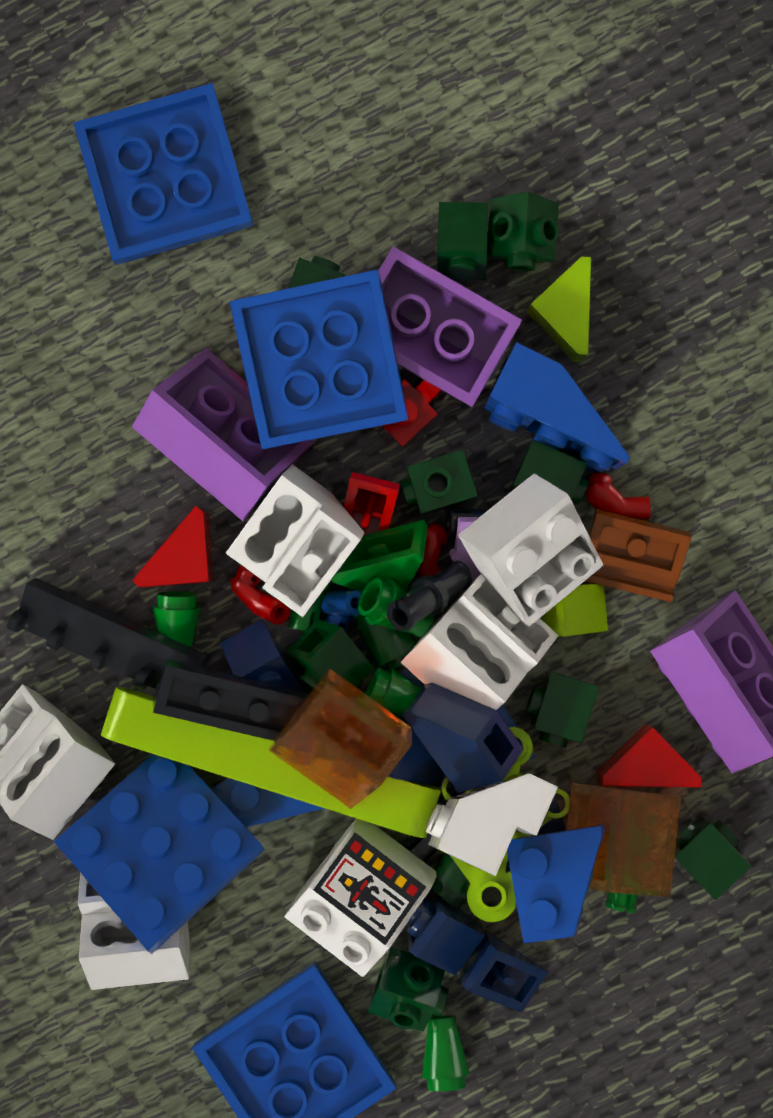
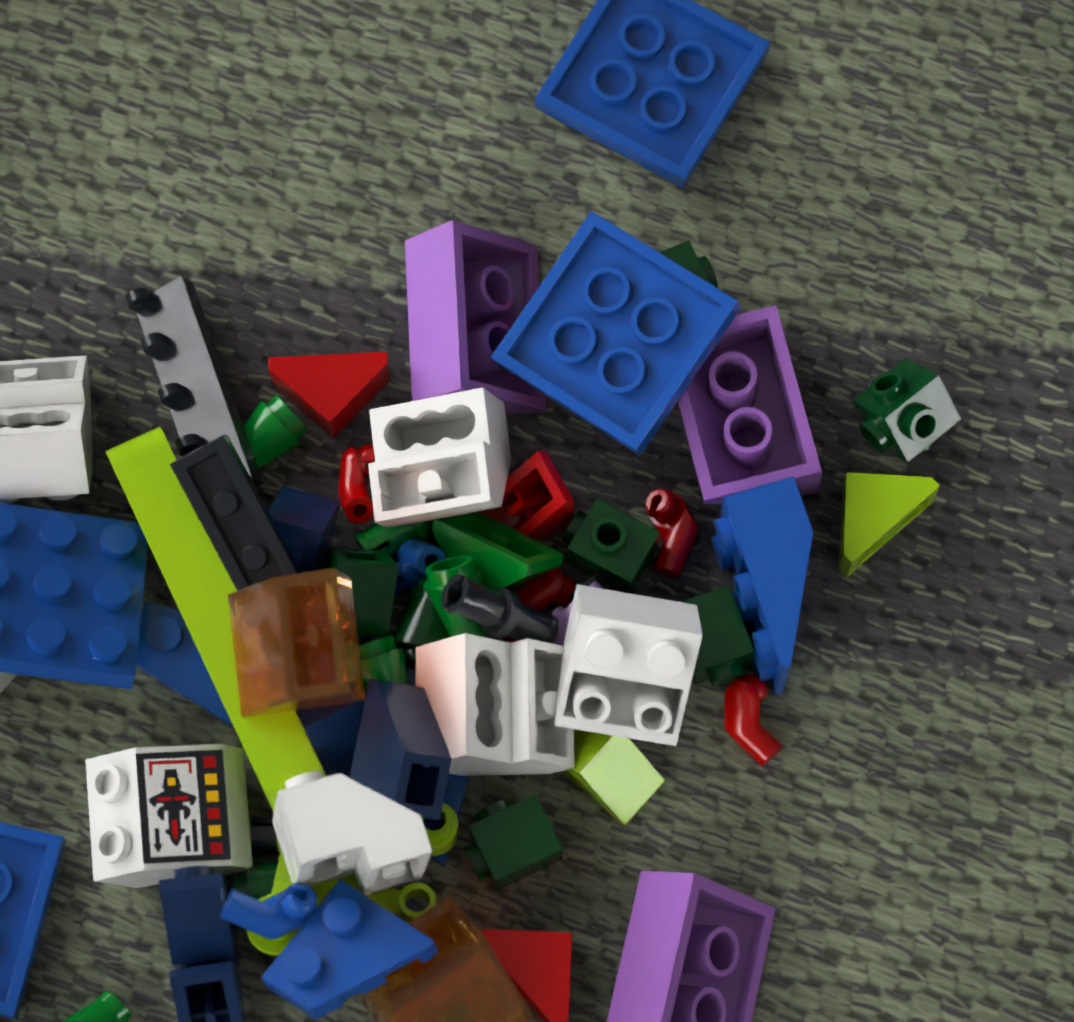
camera: 50 degrees right, 15 degrees down
(408, 990) = (118, 940): dark green brick -> none
(418, 409) = (654, 468): red plate -> none
(462, 240) = (843, 366): dark green brick -> none
(462, 433) = (676, 528): none -> red arm
(491, 902) = (273, 916): none -> blue arm
(638, 554) = (716, 780): dark orange plate -> none

